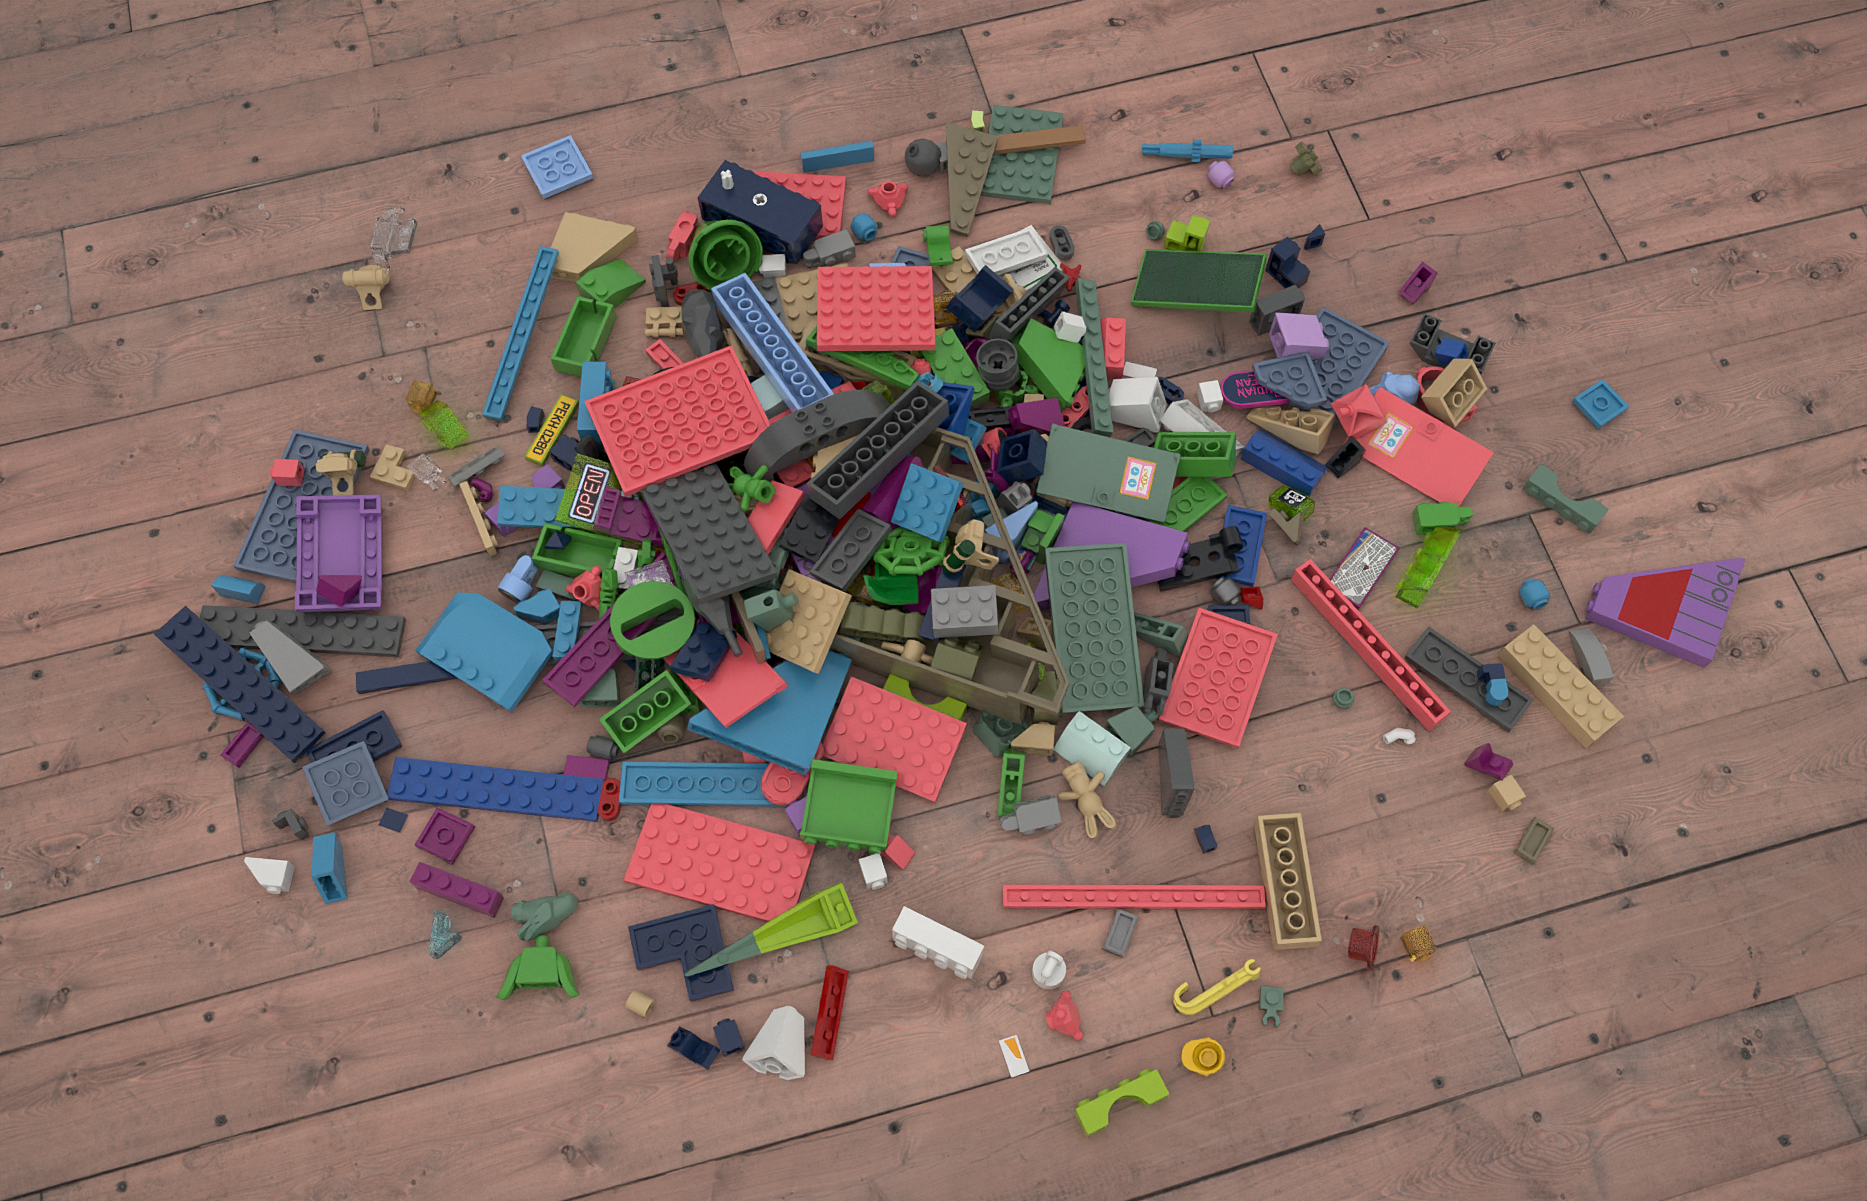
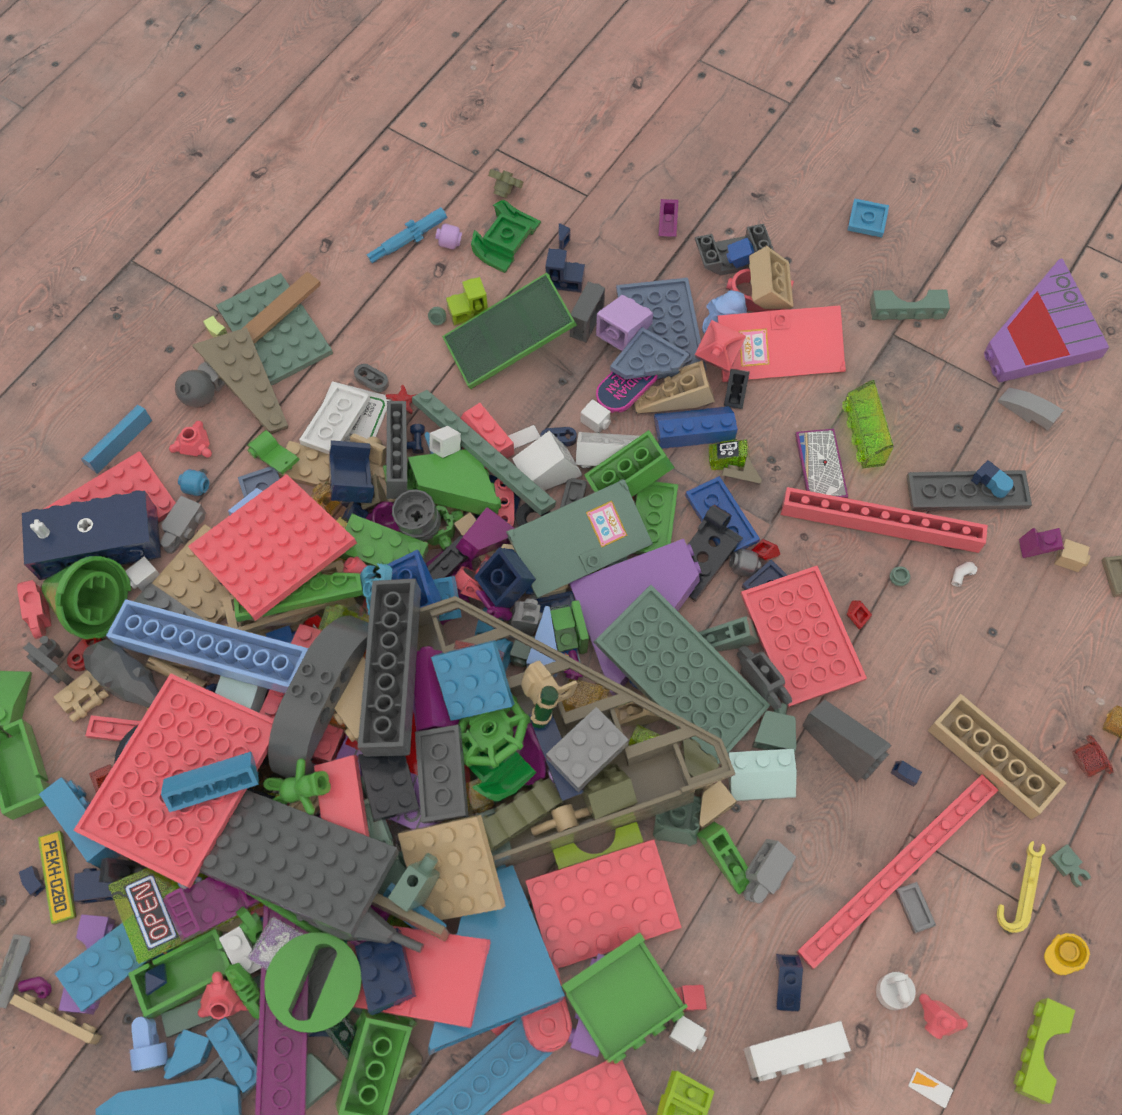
camera: 40 degrees left, 0 degrees up
(695, 436) = (209, 782): none -> dark azure brick
(976, 900) = (789, 982): none -> dark blue bracket
(1089, 802) = (799, 820): tan animal -> none
(1267, 204) = (504, 236): none -> green piece
(1281, 699) = (858, 613): none -> red slope
(1445, 514) = (841, 381): bright green hinge -> none
(1534, 594) = (953, 390): dark azure head -> none
(1560, 686) = (1033, 445): tan brick -> none

